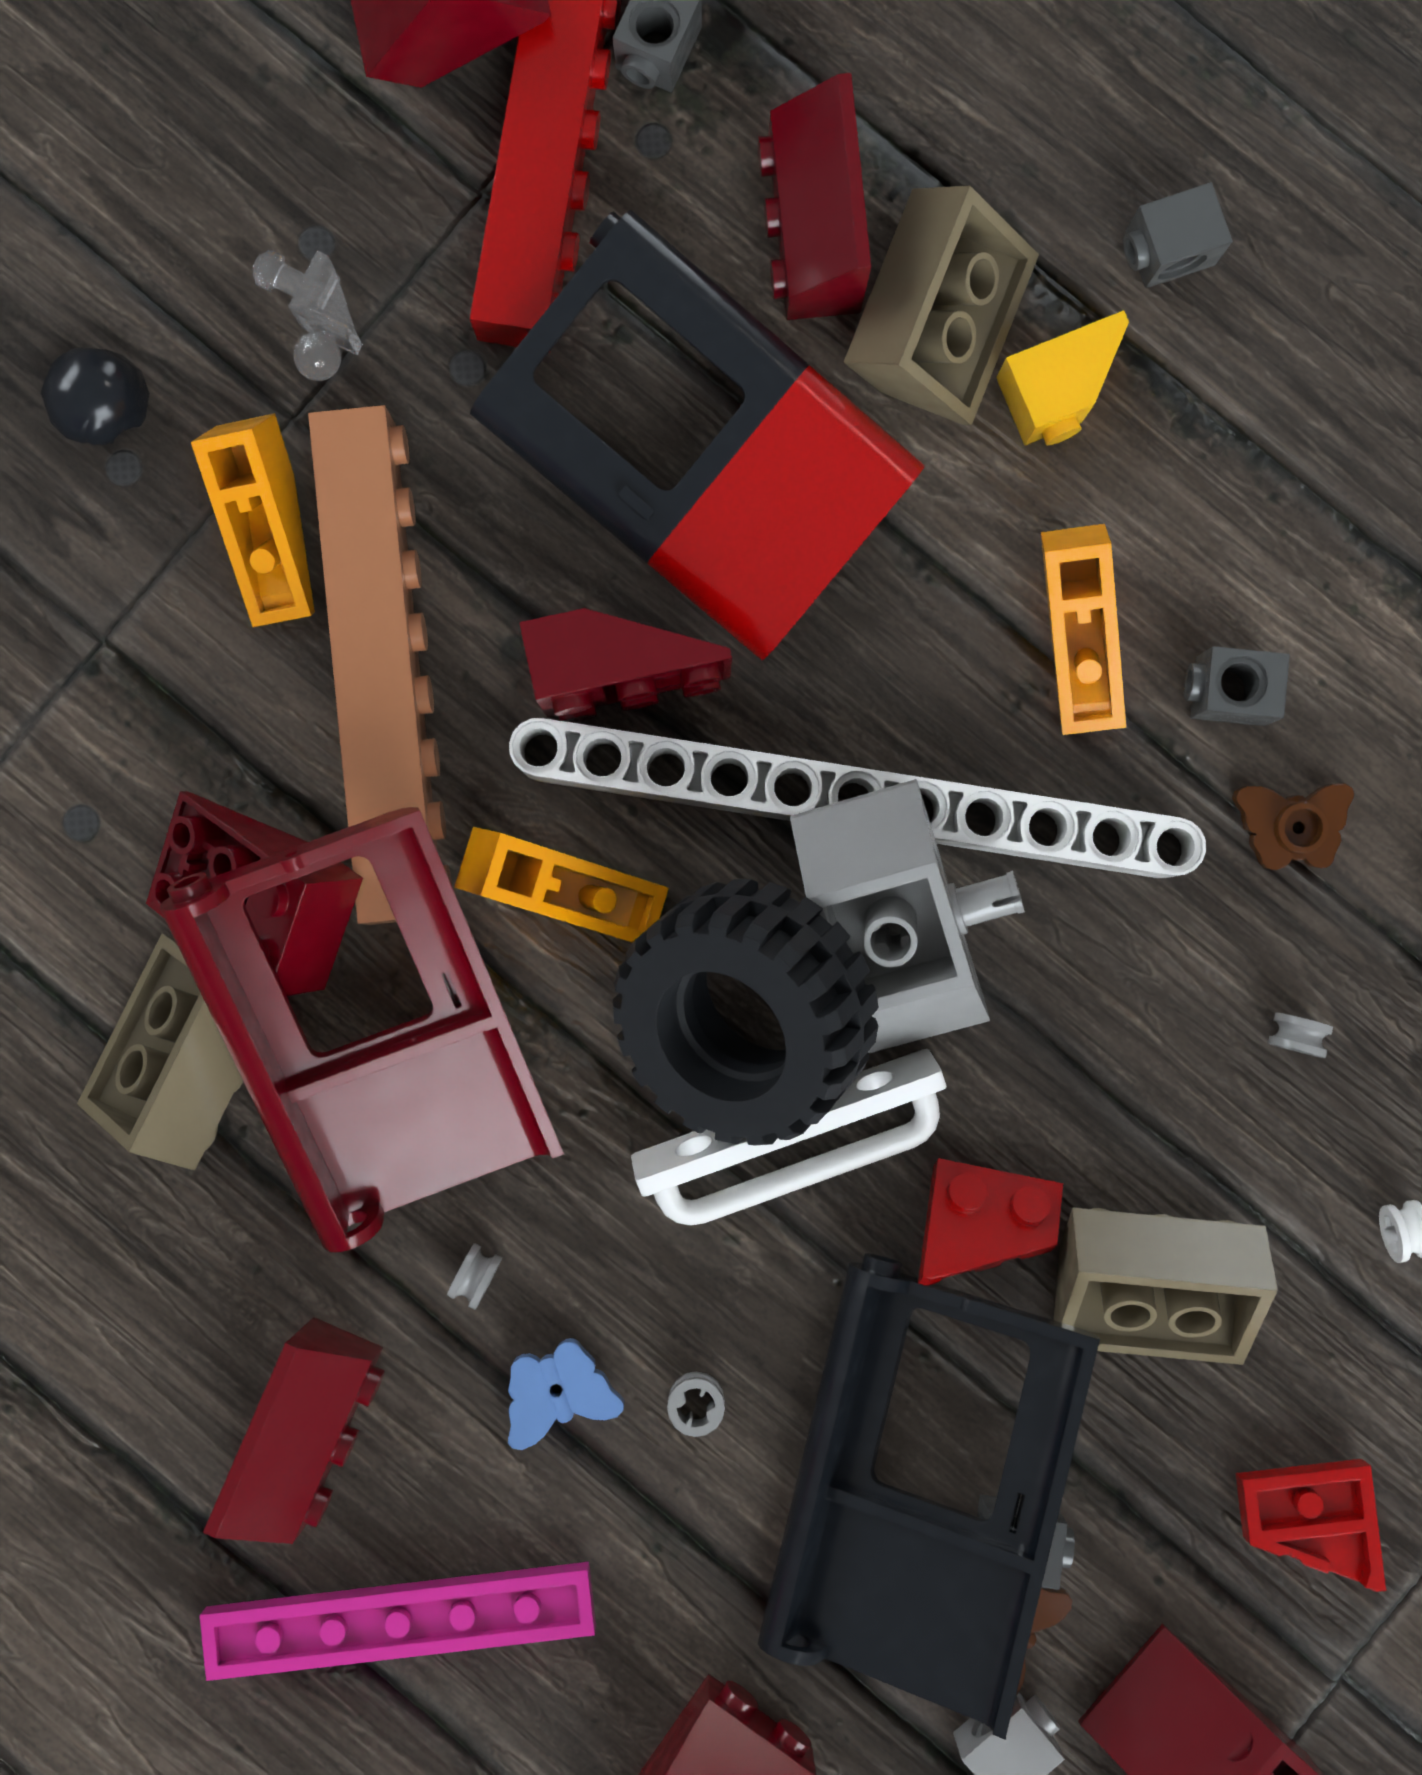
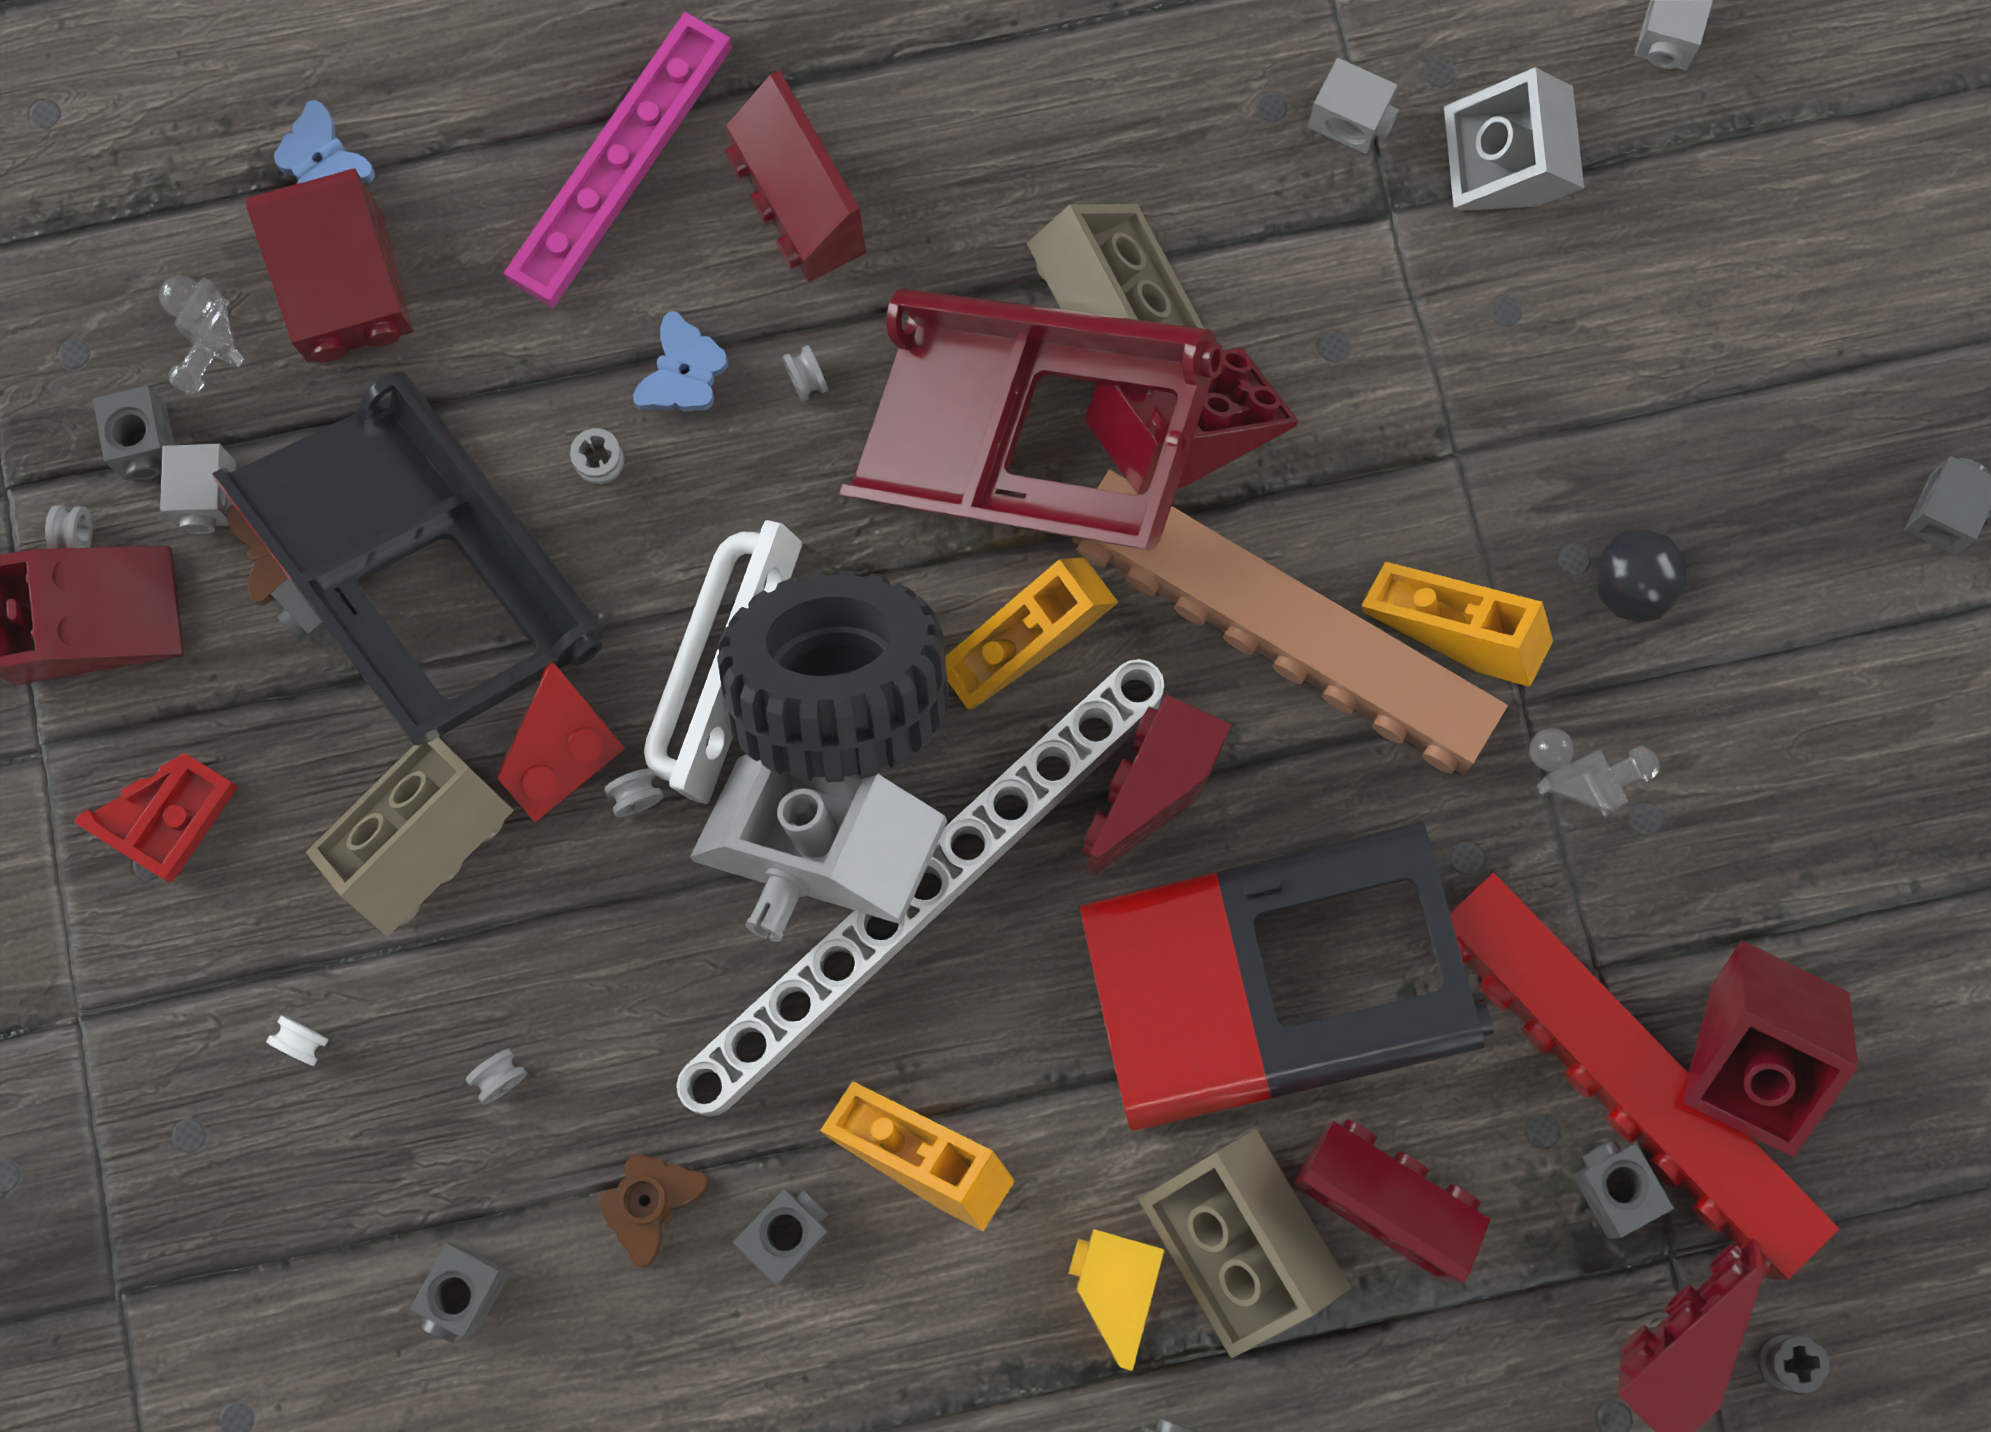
camera: 135 degrees right, 10 degrees down
(971, 1117) = (633, 792): none -> light grey bush

